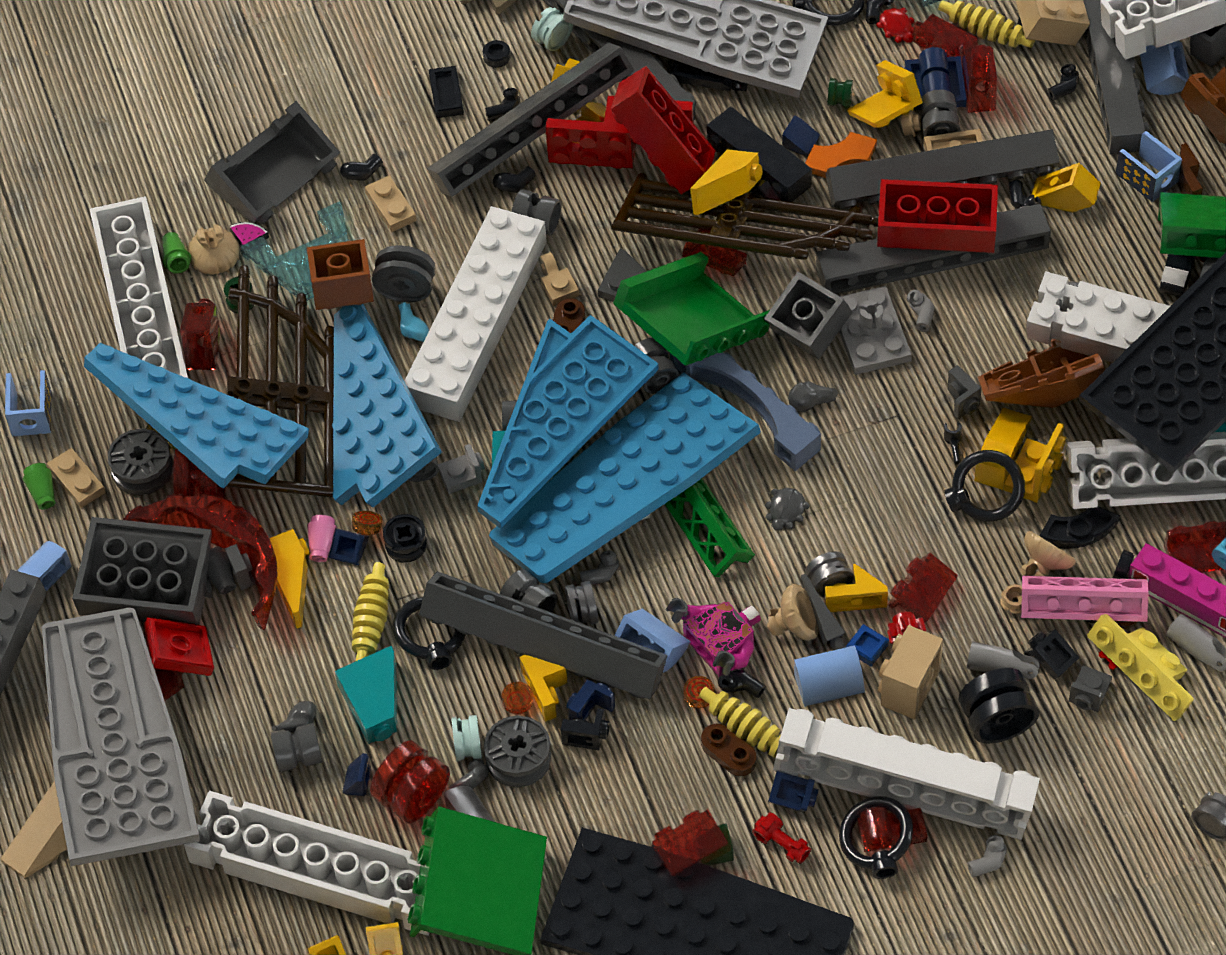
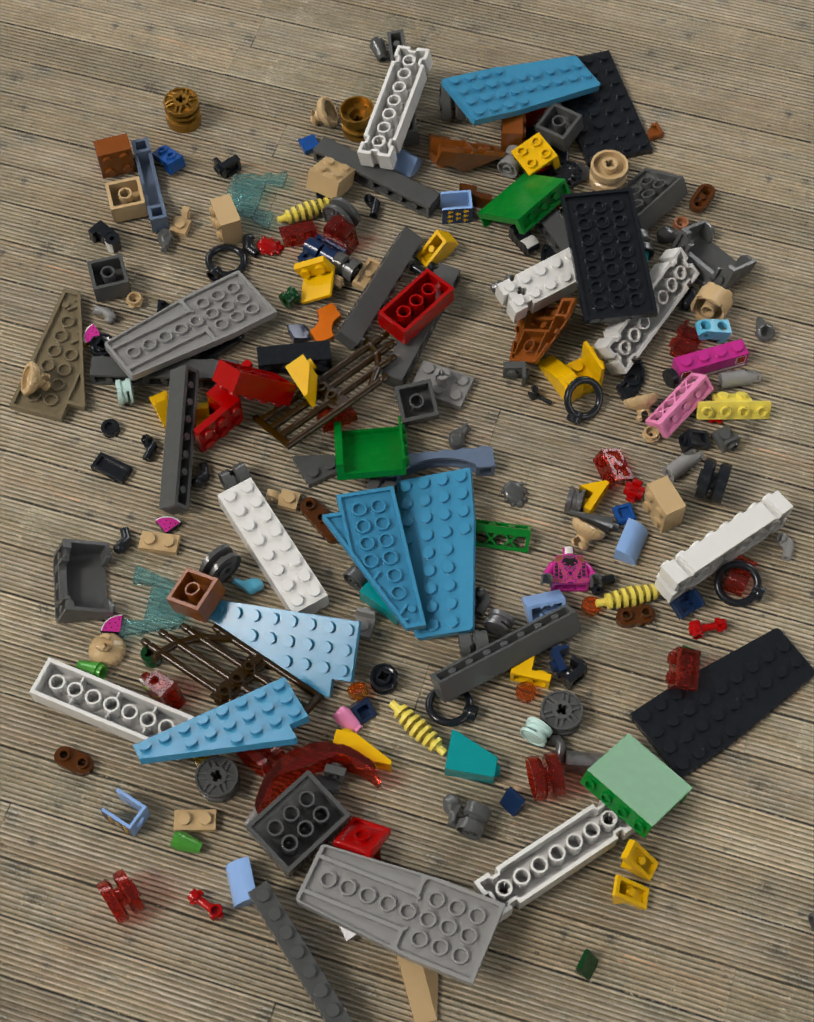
camera: 55 degrees left, 5 degrees up
(54, 314) = (73, 760): none -> reddish brown plate
(421, 194) = (168, 523): none -> dark pink tile
(923, 308) = (450, 354): light grey arm -> none
(1007, 56) = (342, 207): none -> dark grey wheel

